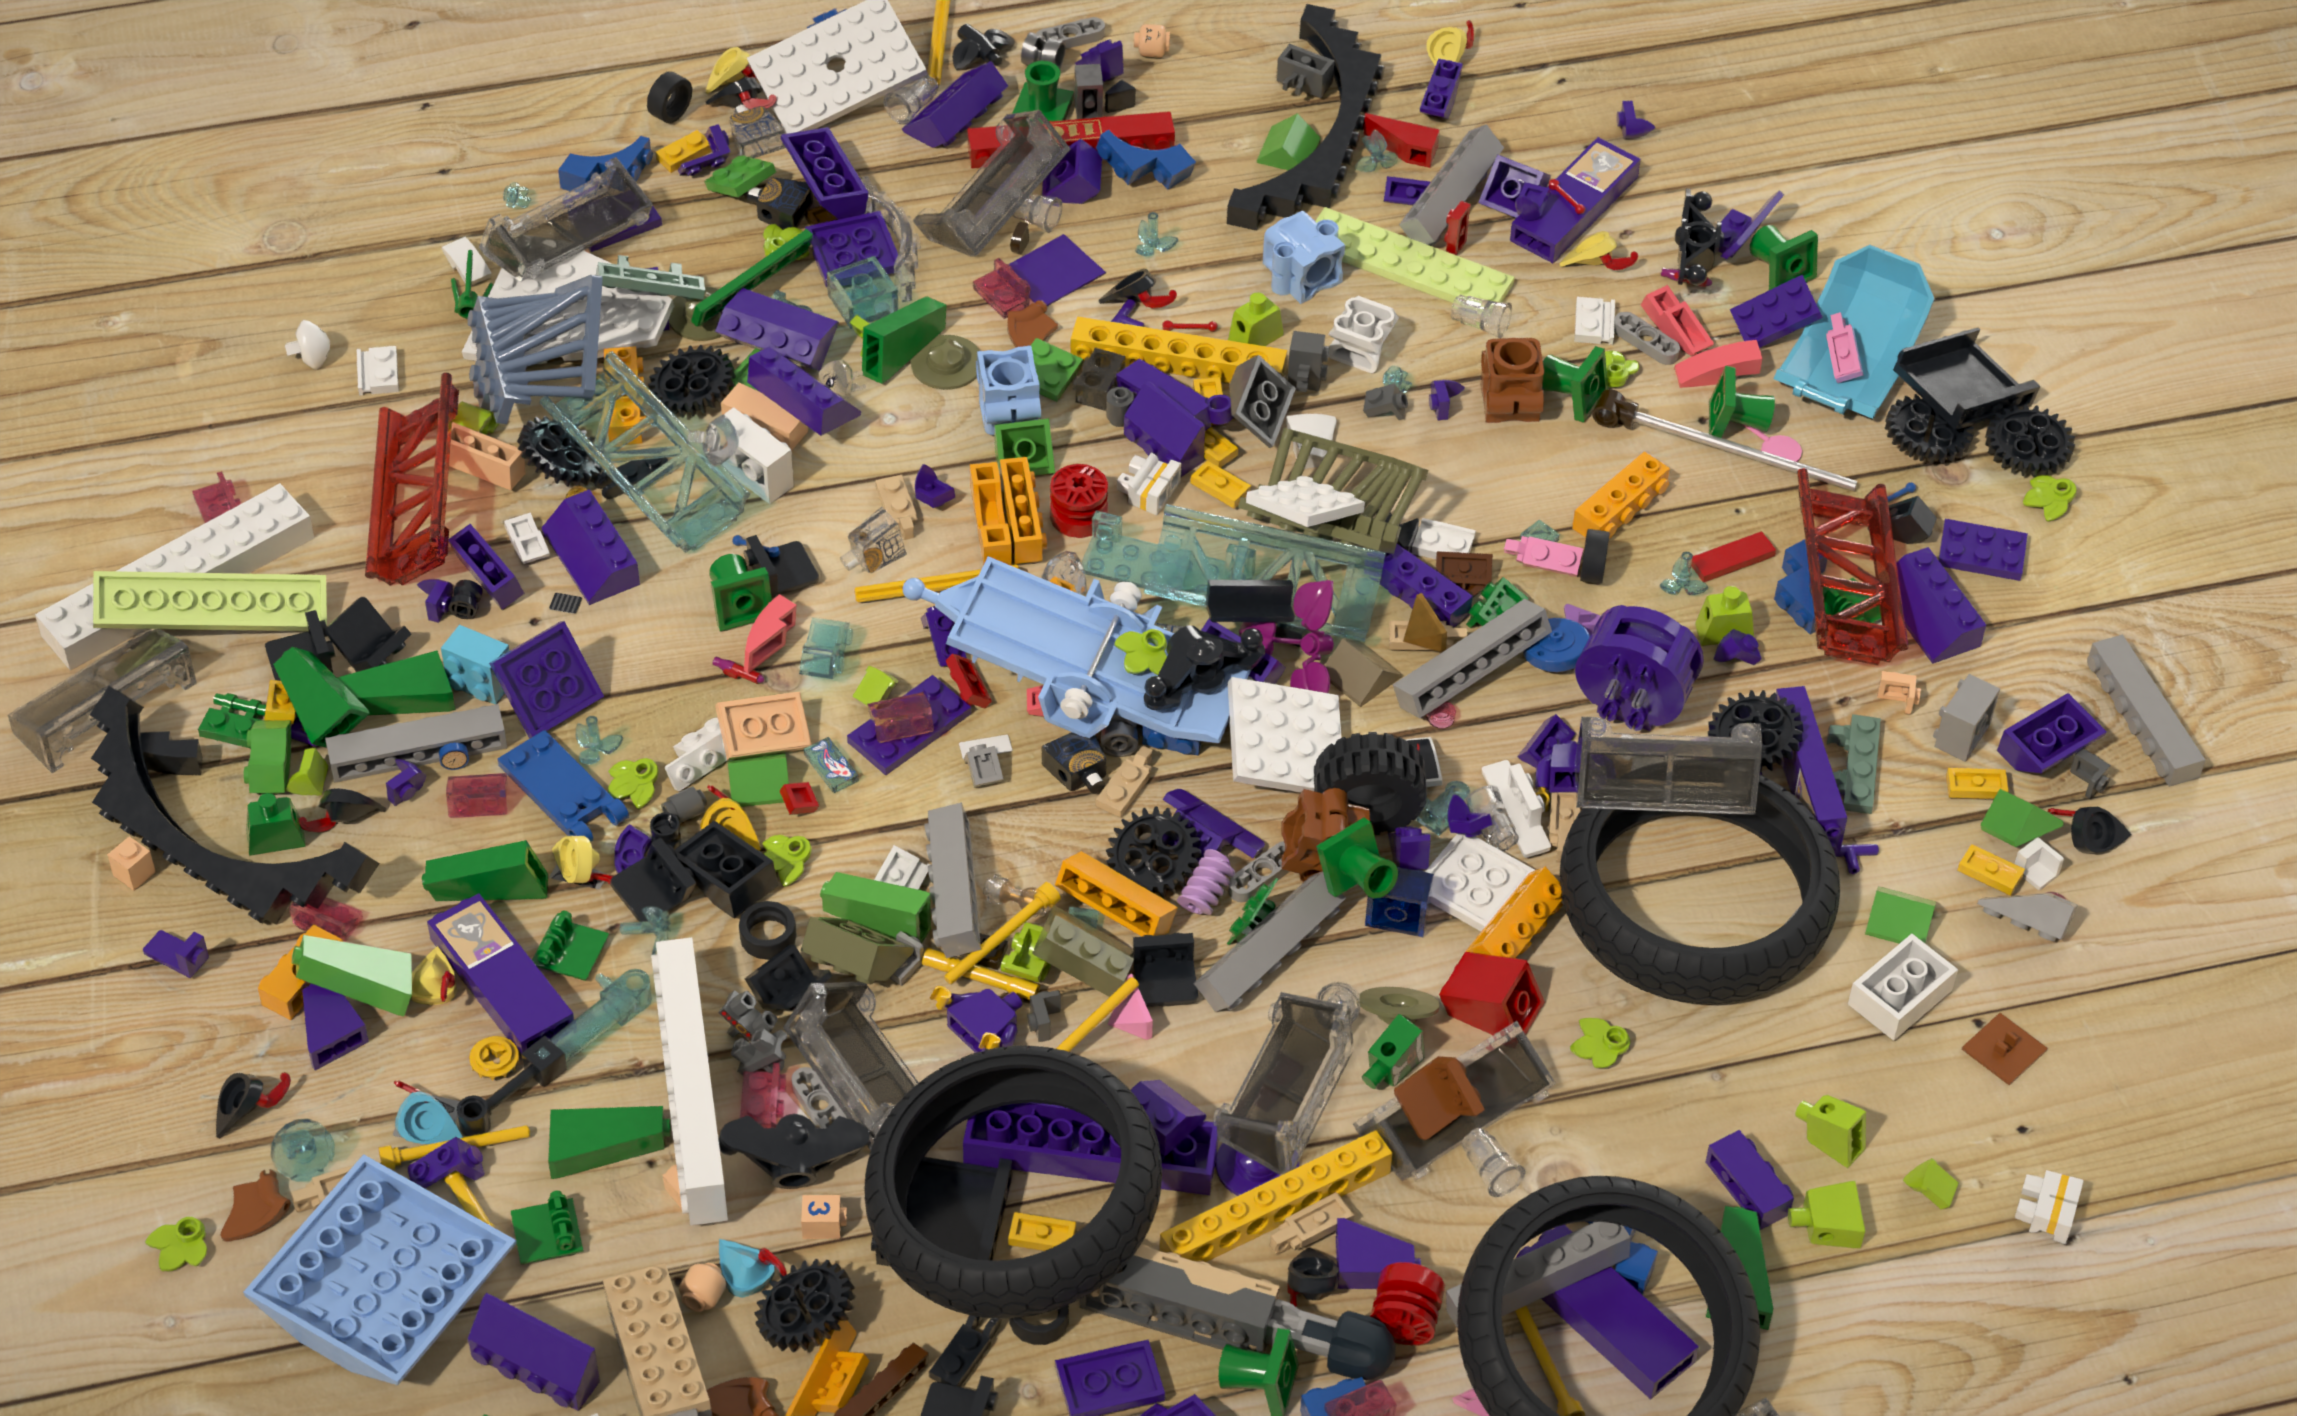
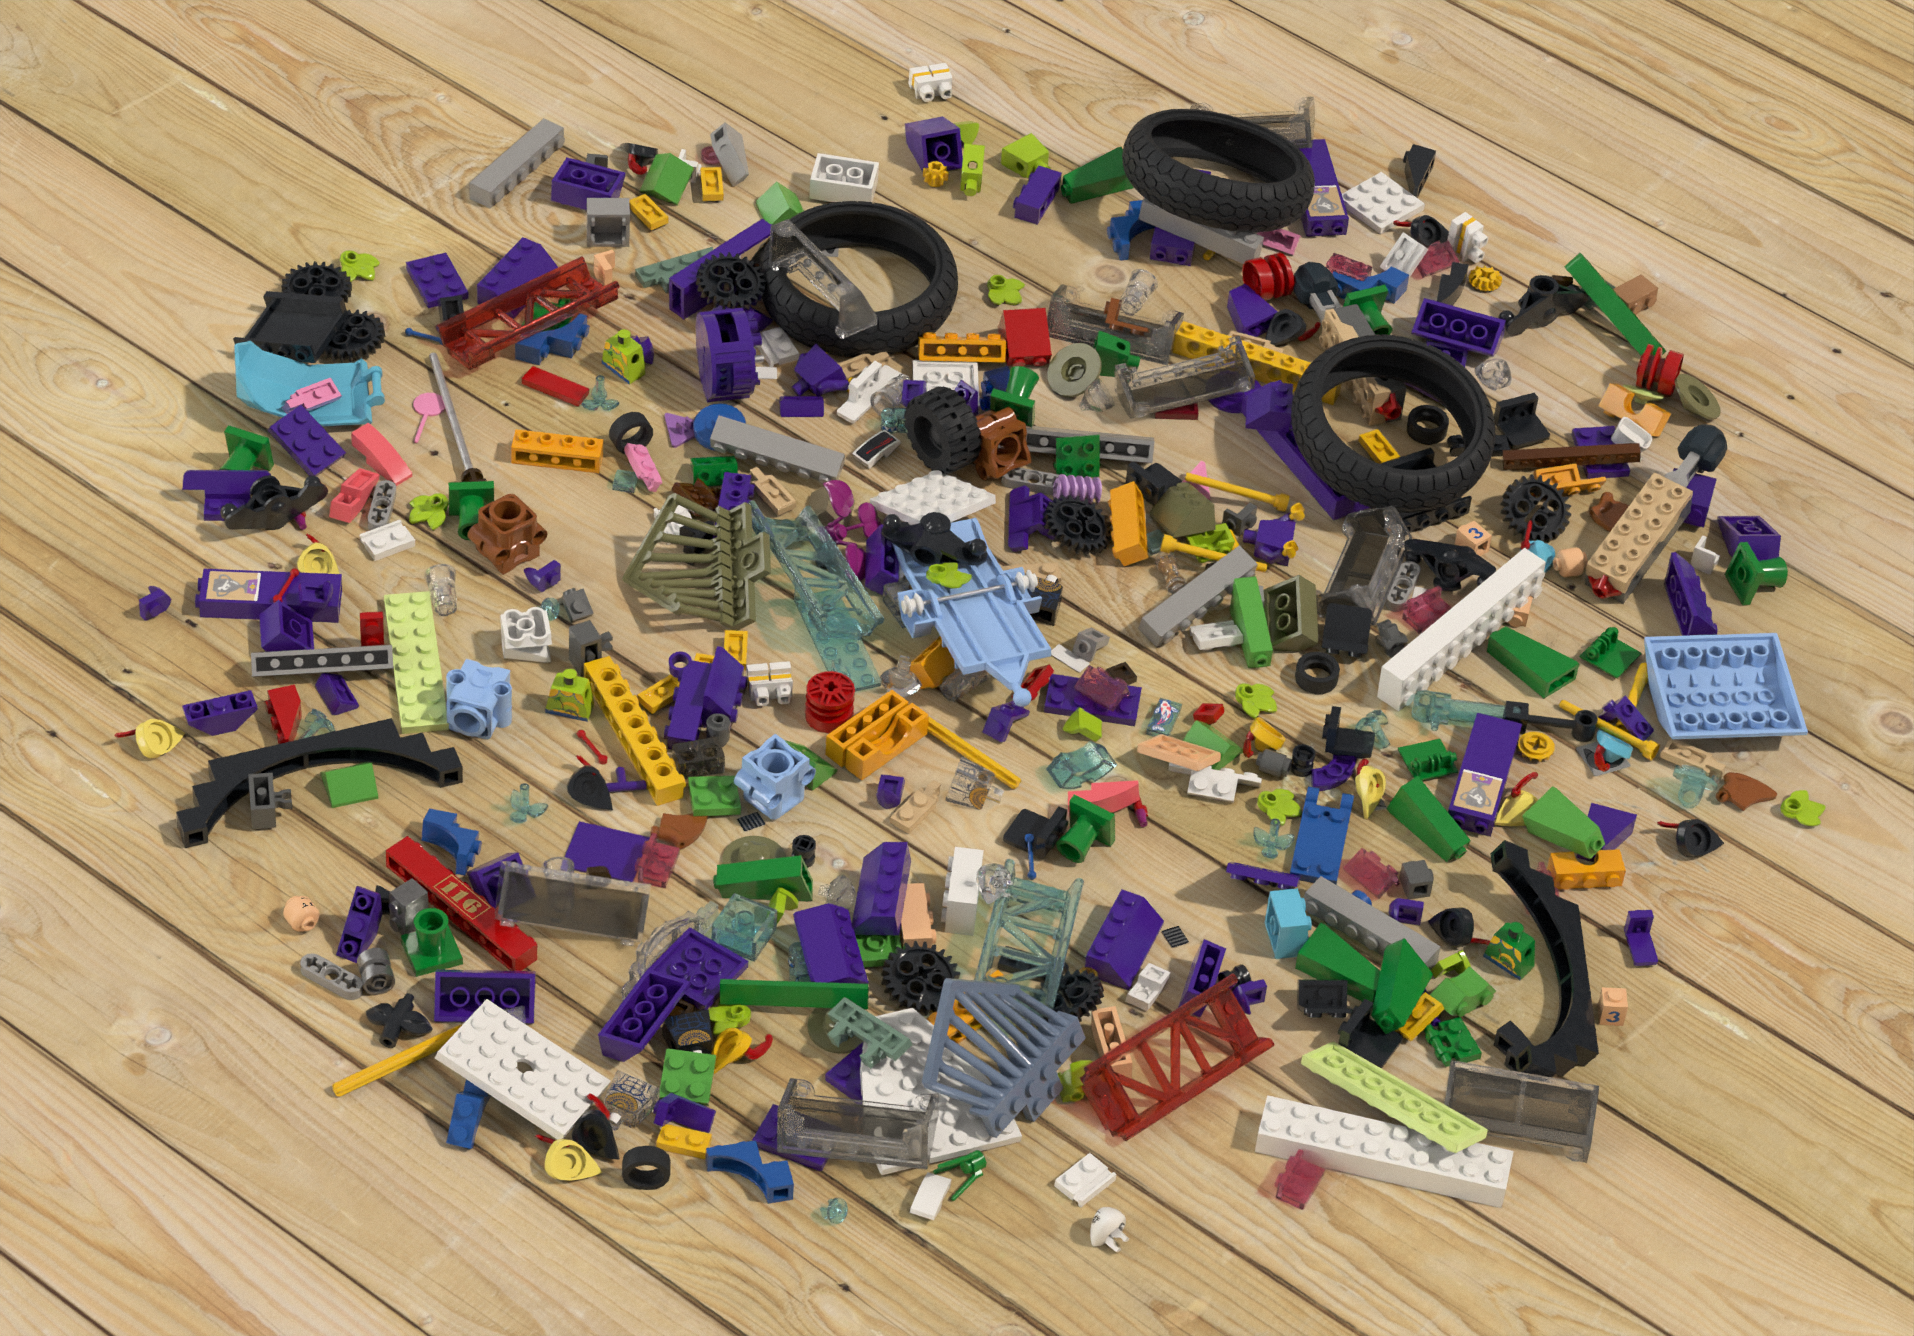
camera: 130 degrees left, 5 degrees down
(433, 820) = (1416, 879): none -> dark grey brick
(727, 868) = (1301, 706): black slope -> none
(743, 224) = (734, 1044): none -> yellow piece
(760, 1052) = (1405, 617): dark grey hips -> none
(917, 388) = (804, 846): none -> black wheel
(921, 769) = (1123, 672): none -> dark brown tile
(1250, 600) = (849, 555): black panel -> none
(1260, 398) = (649, 652): dark grey slope -> none
(1305, 501) = (742, 559): white plate -> none
(1316, 425) = (647, 626): white slope -> none
(1425, 627) = (773, 482): pearl gold slope -> none
(1737, 407) = (426, 426): green plant -> none
(1862, 1095) = (935, 174): none -> yellow gear
(1919, 1125) = (935, 141): none -> dark purple slope
(2004, 1048) = (835, 141): dark orange piece -> none

